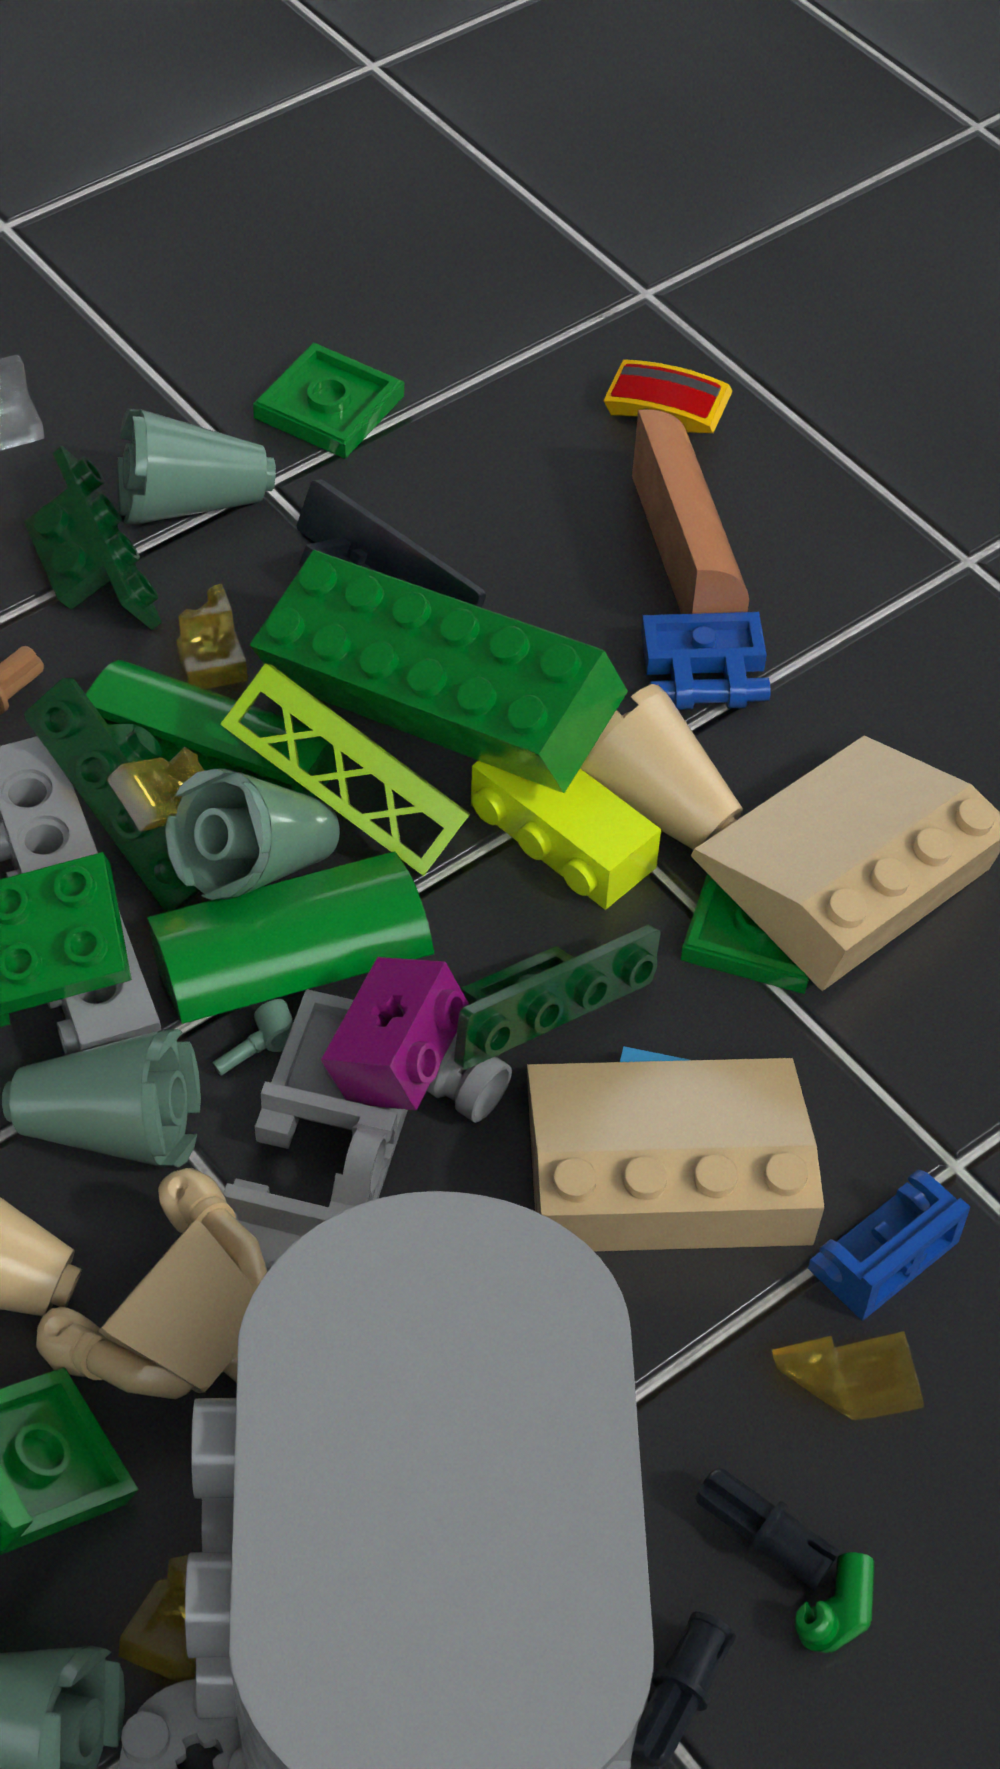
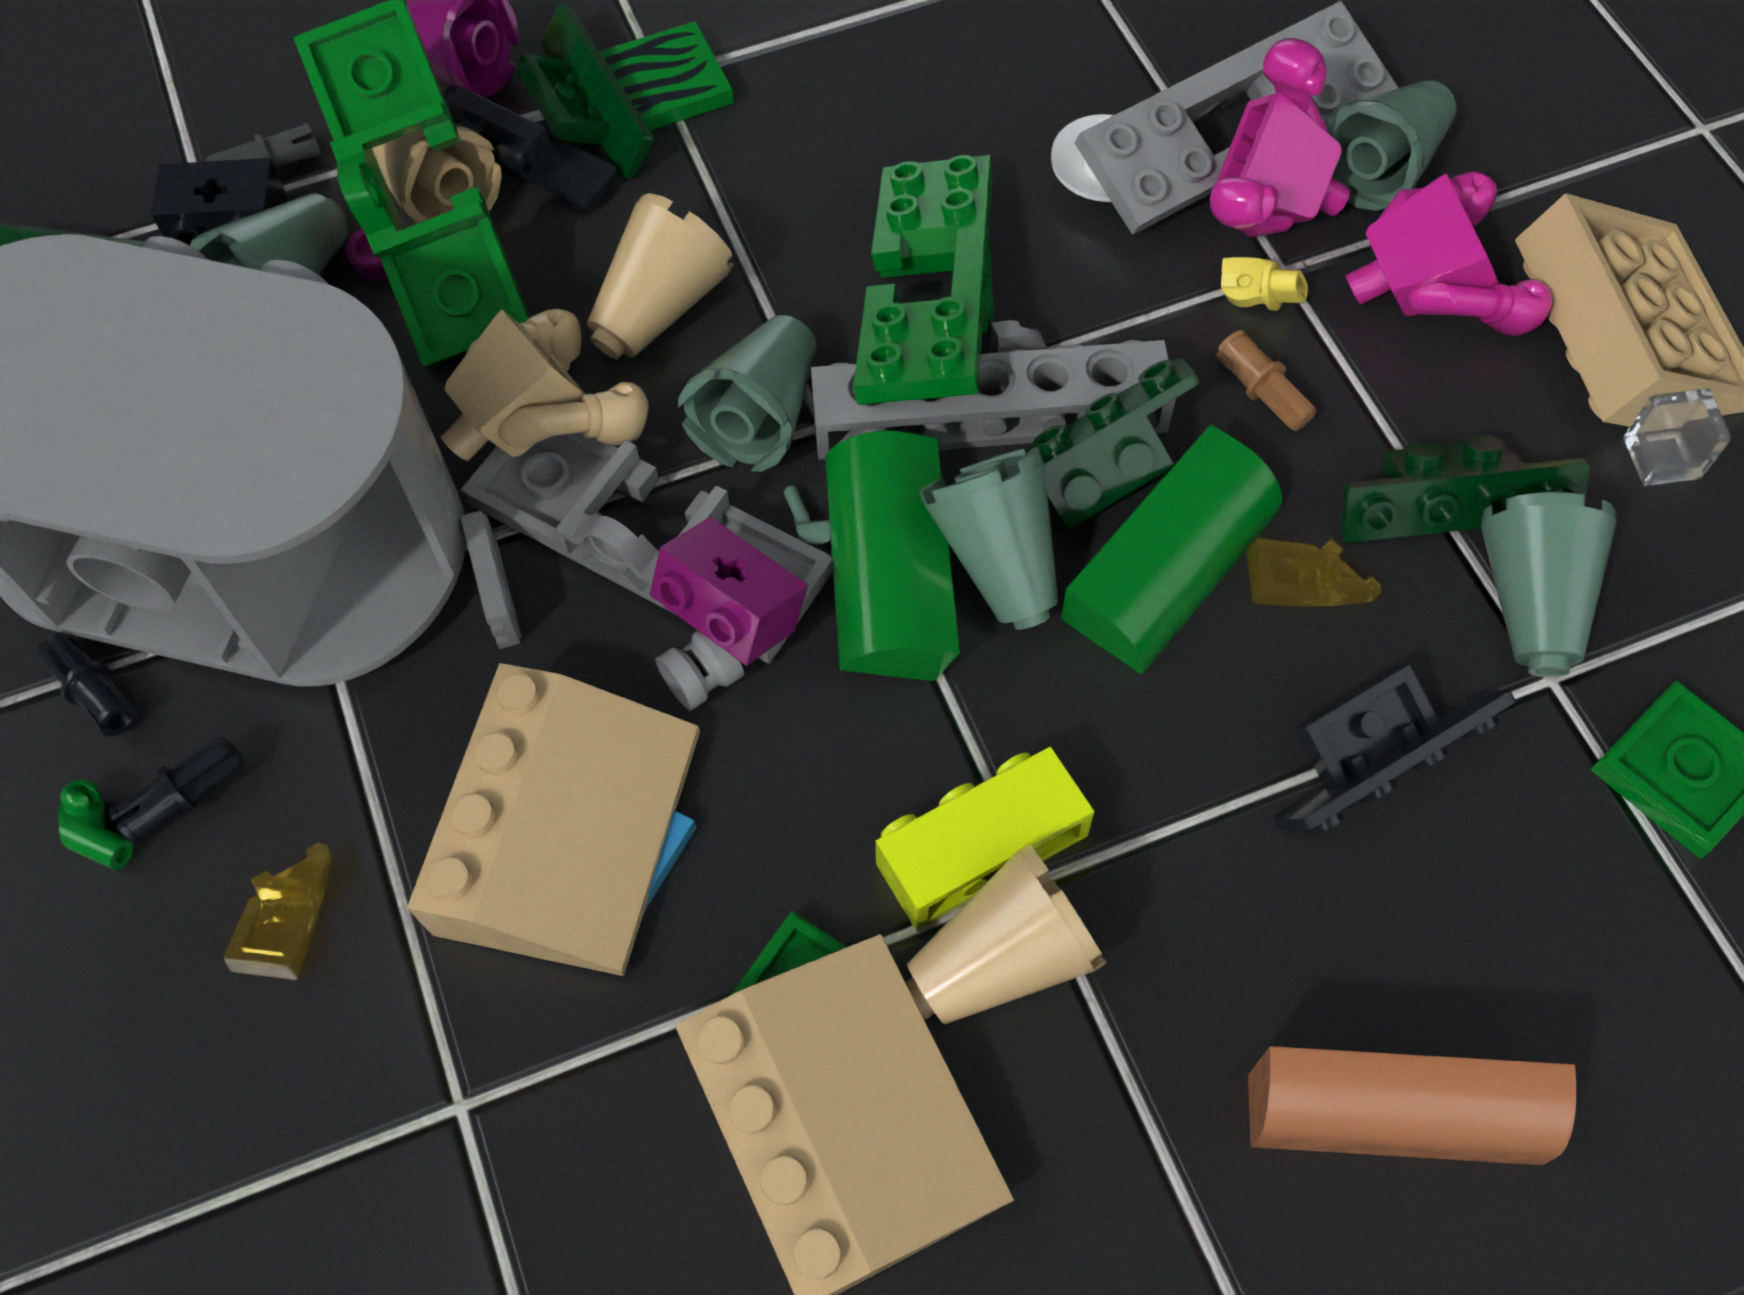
camera: 110 degrees right, 10 degrees up
(150, 787) = (1067, 457): clear yellow slope -> none
(360, 749) = (1080, 634): lime fence -> none
(442, 669) = (1158, 725): green brick -> none
(550, 992) = (759, 743): dark green bracket -> none
(685, 394) = (1663, 1167): slope -> none
(707, 645) = (1211, 1069): blue plate -> none
(891, 1245) = (386, 990): blue hinge -> none

